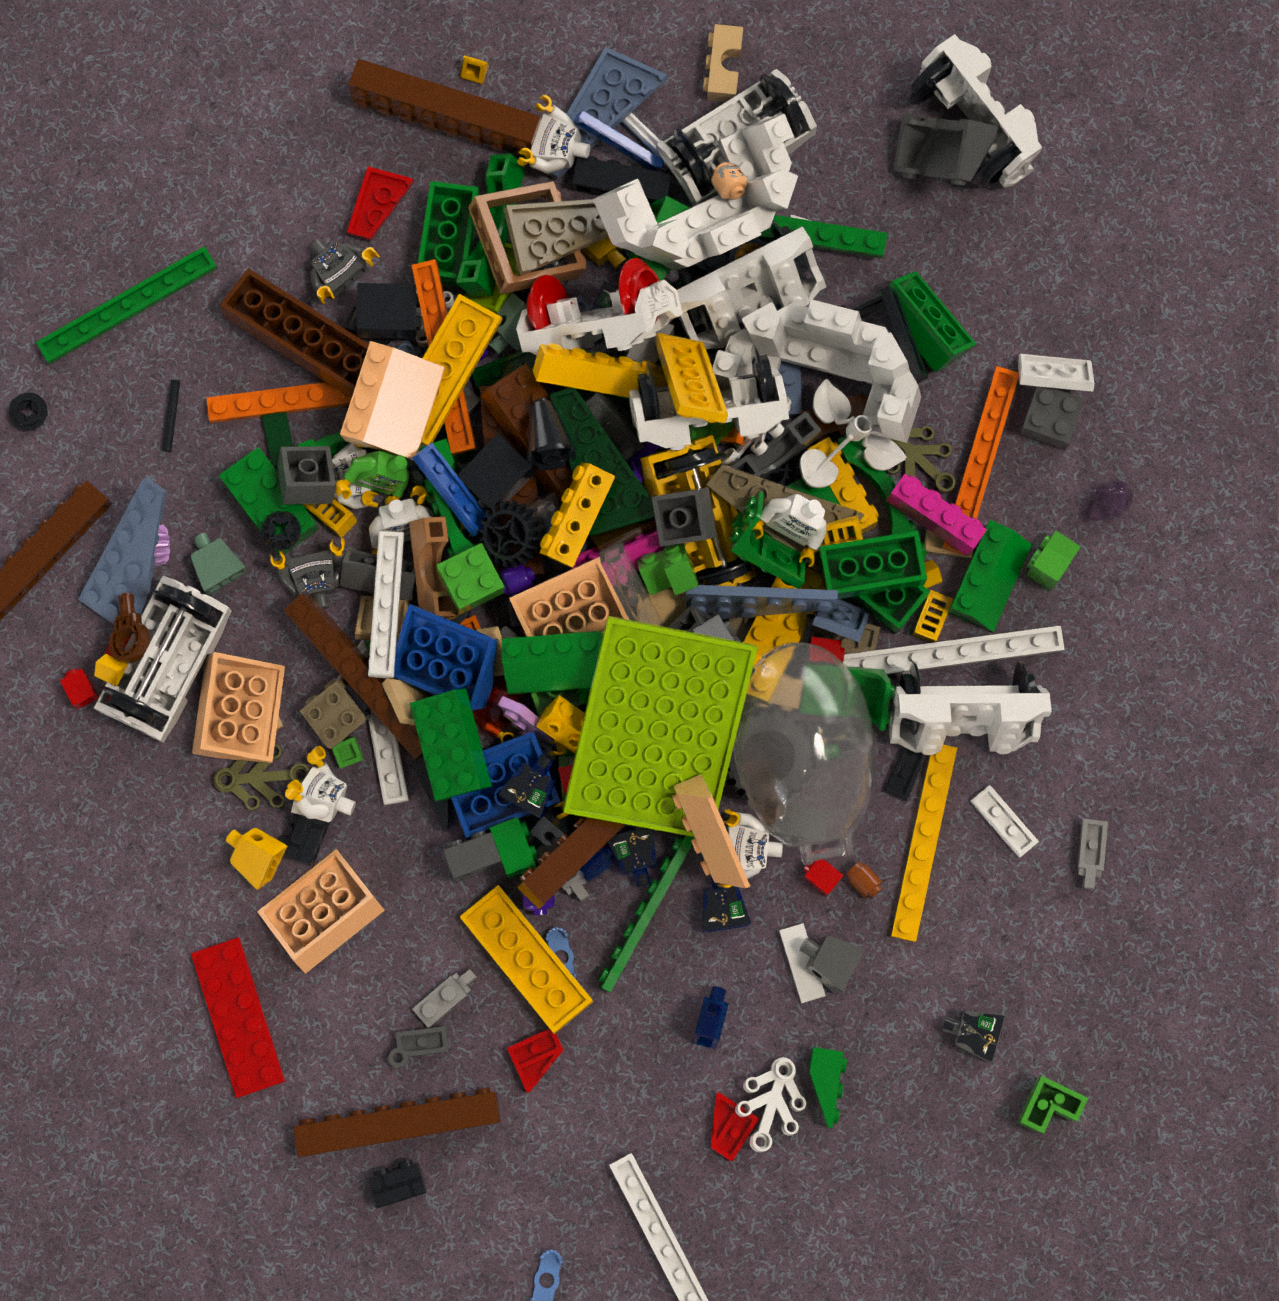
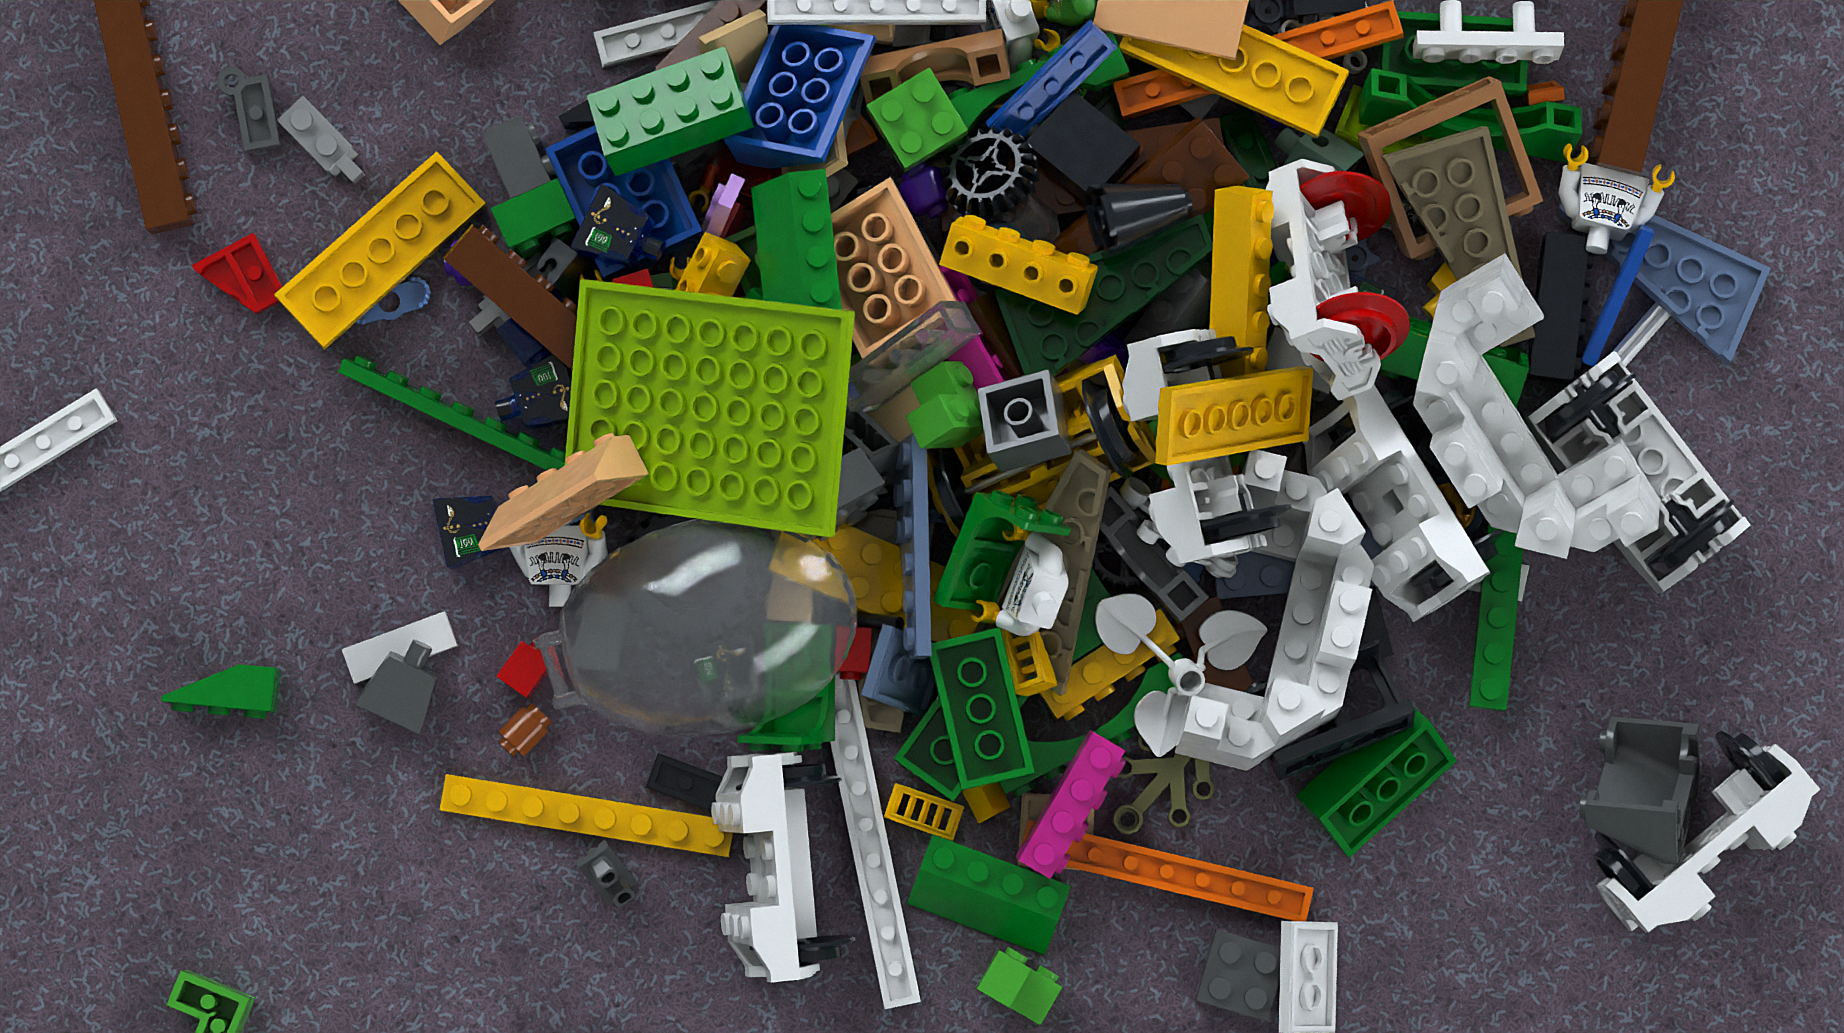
camera: 85 degrees right, 5 degrees up
(398, 1184) = (54, 94): black brick -> none
(447, 216) = (1488, 45): none -> white plate
(473, 69) = (1718, 74): yellow slope -> none
(477, 178) = (1542, 92): none -> orange tile
(708, 1026) = (292, 519): clear blue torso -> none
(725, 43) = (1791, 447): tan arch -> none
(728, 1128) = (159, 557): red wing -> none
(729, 181) = (1557, 459): light nougat head -> none
(773, 1101) = (198, 615): white plant -> none
(966, 827) = (608, 874): none -> dark grey hips
(976, 1033) = (311, 903): black torso -> none
(1004, 821) = (624, 932): white tile -> none

